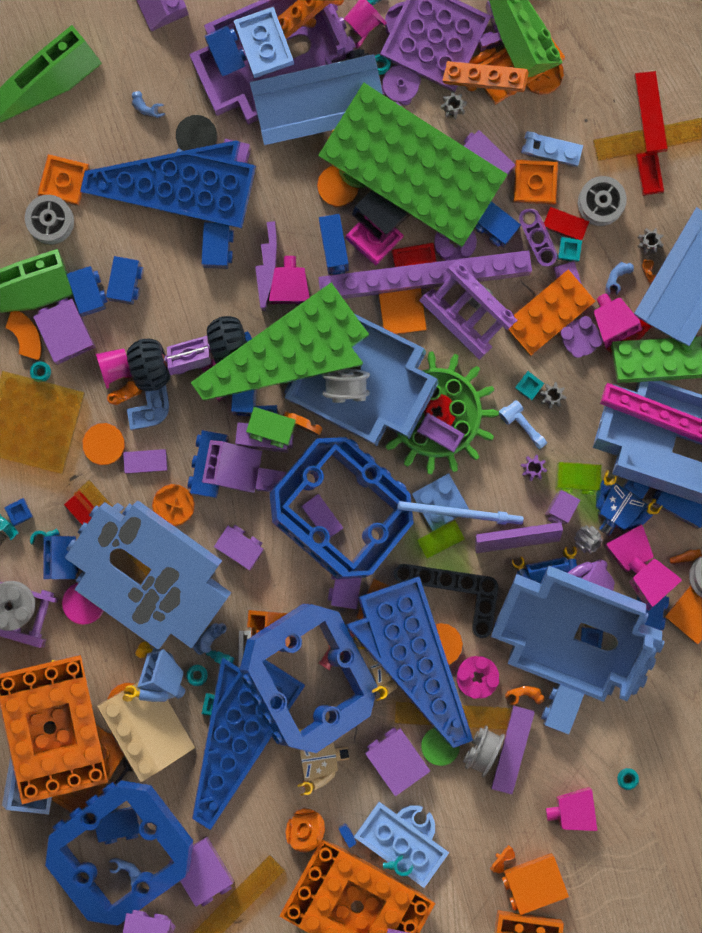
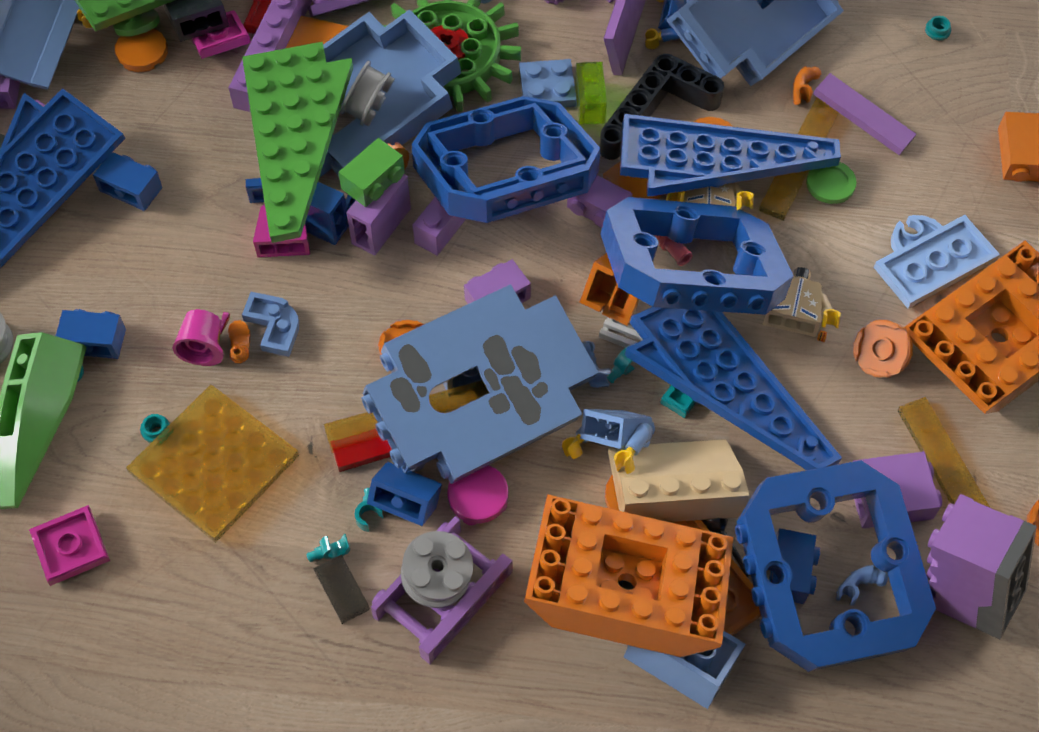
camera: 70 degrees left, 25 degrees down
(18, 512) = (316, 526): blue tile -> none
(27, 334) = (98, 426): orange tile -> none
(64, 331) = (122, 378): medium lavender brick -> none
(103, 444) = (288, 393): orange tile -> none
(124, 280) = (104, 288): blue brick -> none
(145, 461) = (336, 355): medium lavender tile -> none
(153, 368) = (225, 285): black plate -> none
(190, 675) = (635, 393): teal plate -> none
(195, 482) = (378, 284): blue brick -> none
(232, 466) = (395, 251): medium lavender brick -> none
(265, 272) = (190, 143): medium lavender slope -> none
(289, 283) = (220, 127): dark pink torso -> none
(333, 244) = (200, 62): blue brick -> none
(347, 835) = (905, 310): blue tile -> none
(392, 865) = (963, 270): teal piece -> none
(397, 760) = (832, 227): medium lavender brick -> none
(440, 432) = (472, 40): medium lavender tile -> none
(484, 751) = (858, 130): light grey wheel -> none
(489, 680) = (765, 107): dark pink plate -> none
(499, 517) = (592, 37): light blue bar -> none
(507, 854) = (995, 176): orange piece -> none
(562, 708) = (836, 53): medium blue brick -> none
(574, 811) = (957, 81): dark pink torso -> none

